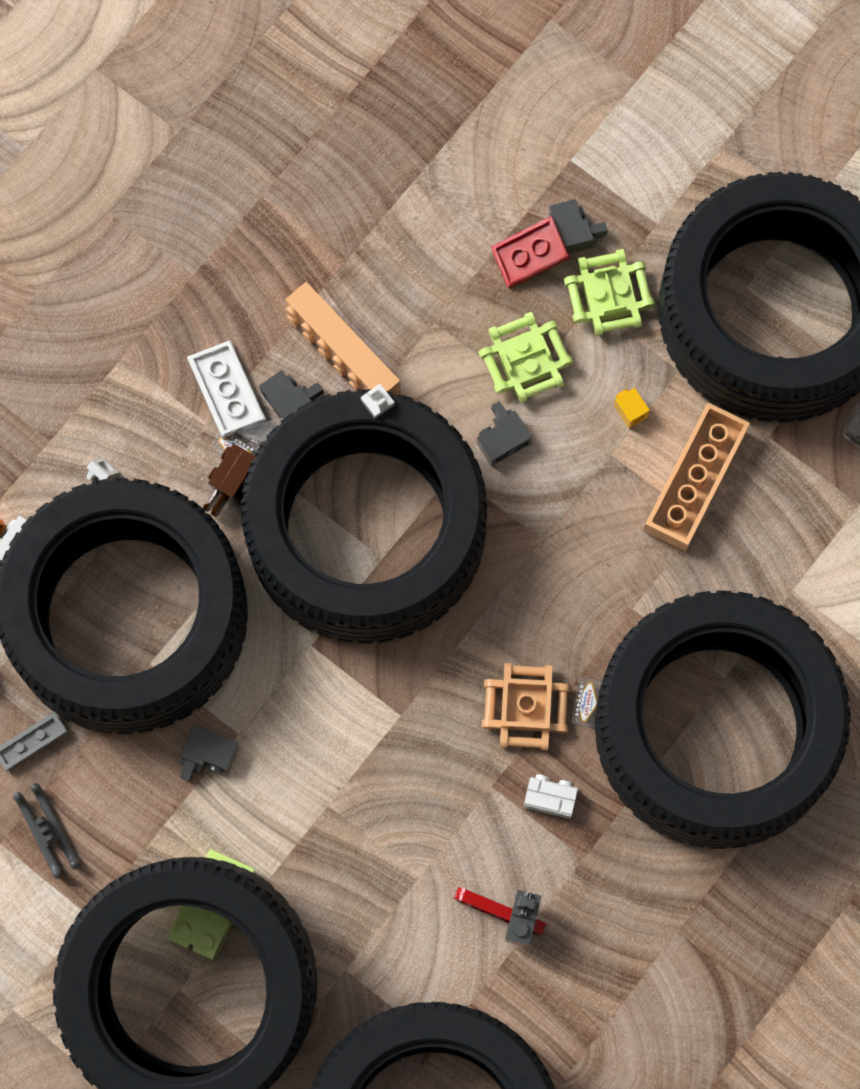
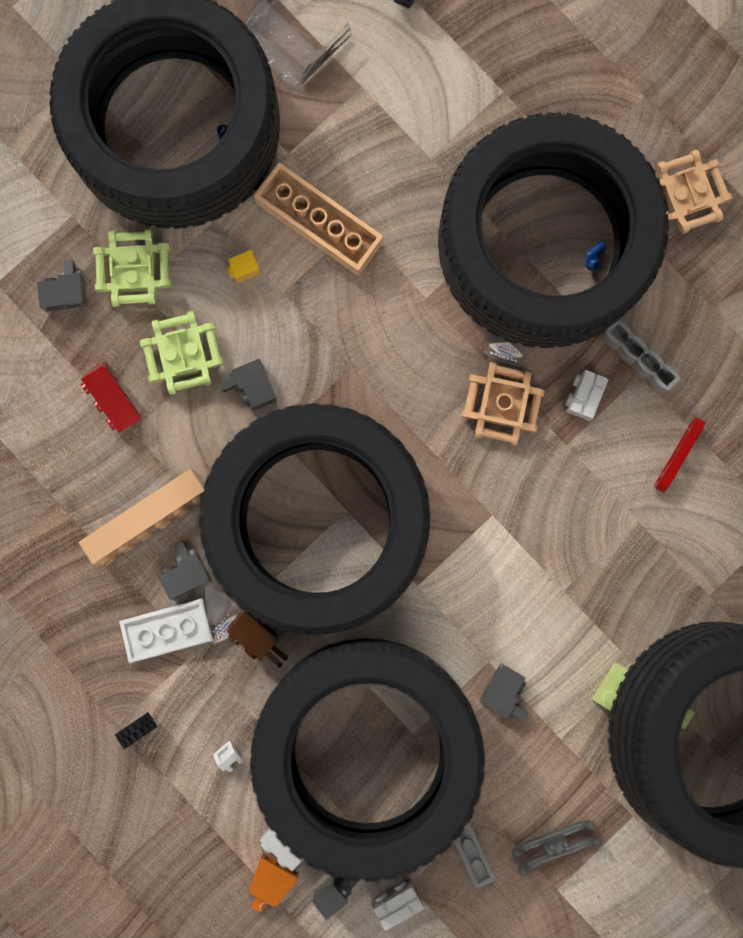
camera: 85 degrees left, 10 degrees up
(118, 373) = (136, 730): none -> black tyre
(377, 401) = (217, 490): white tile -> none
(465, 292) = (110, 397): none -> red wedge
(523, 918) = (697, 434): dark grey hinge -> none
(530, 252) = (81, 332): tile -> none
(599, 853) = (644, 361): none -> light grey brick
(710, 782) = (591, 256): none -> blue arm
(804, 881) = (690, 191): none -> light nougat brick

